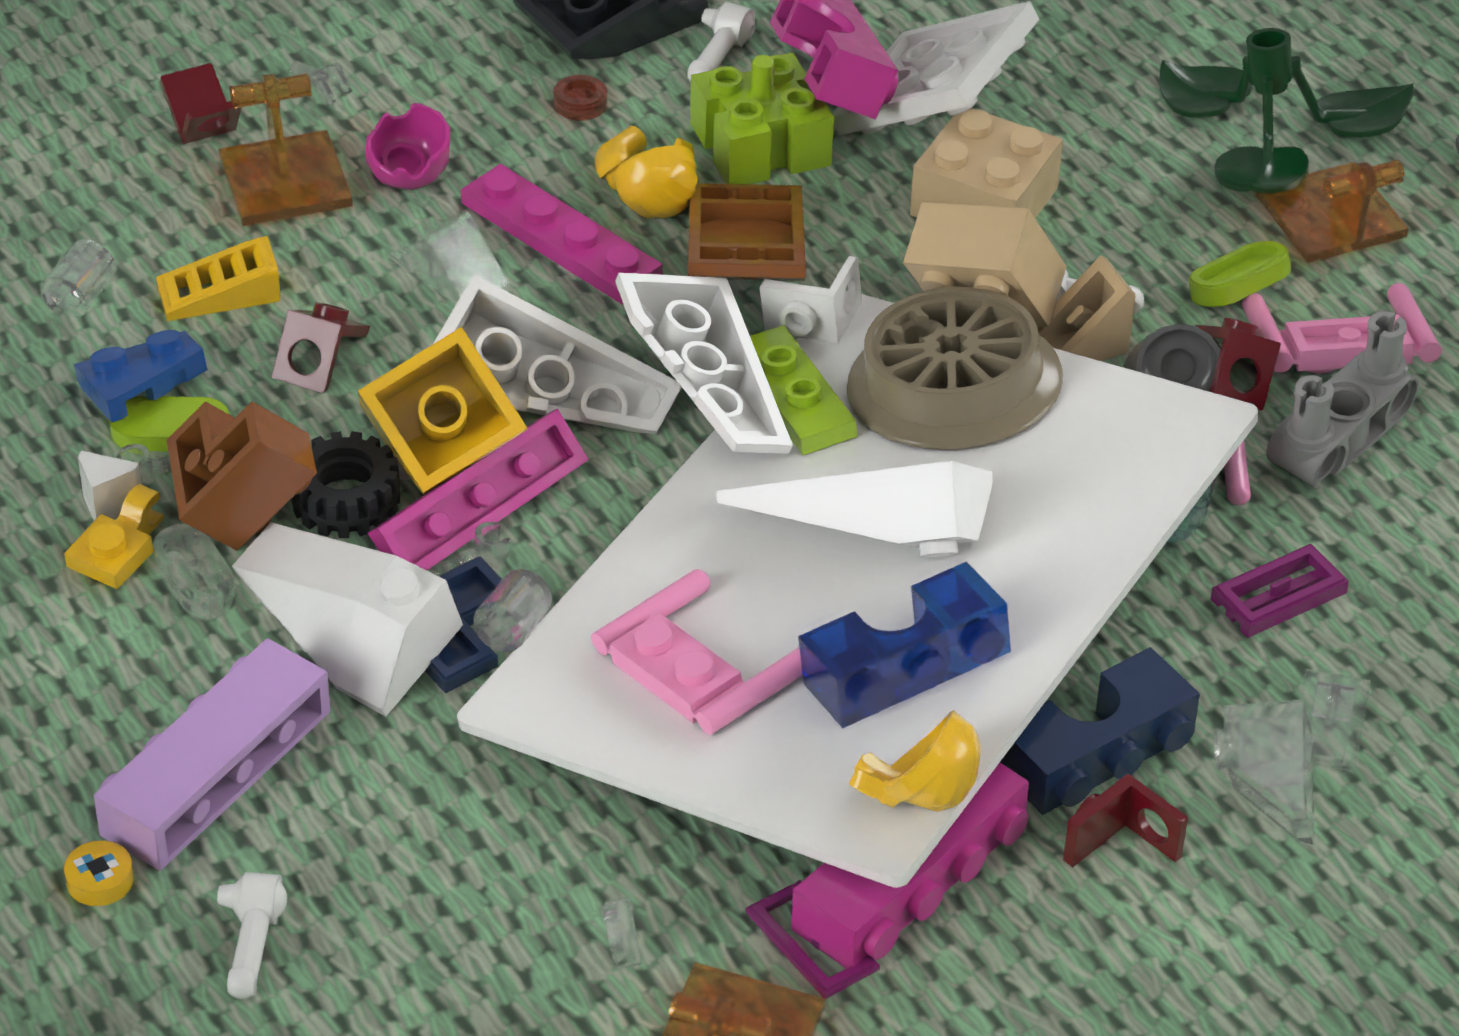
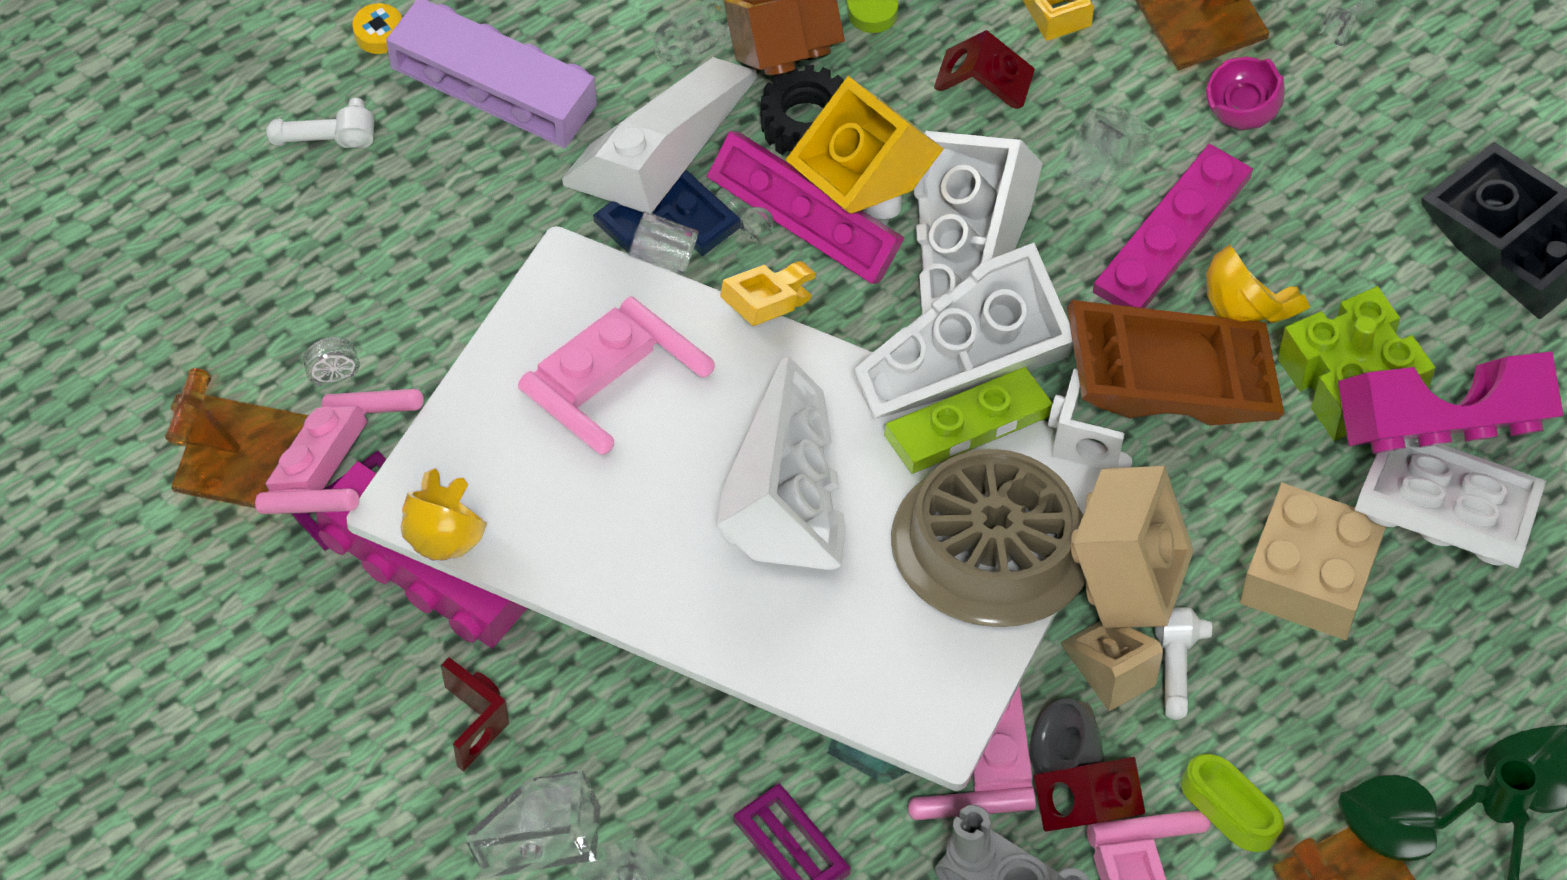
camera: 85 degrees right, 15 degrees up
(580, 97) = (1376, 222): clear red tile -> none
(605, 529) = (766, 295): none -> yellow plate
(618, 150) = (1293, 256): yellow arm -> none
(731, 26) = (1512, 333): white piece -> none
(764, 940) = (321, 447): none -> bright pink plate
(867, 670) = (618, 538): clear blue arch -> none
(1142, 712) = (605, 725): dark blue arch -> none

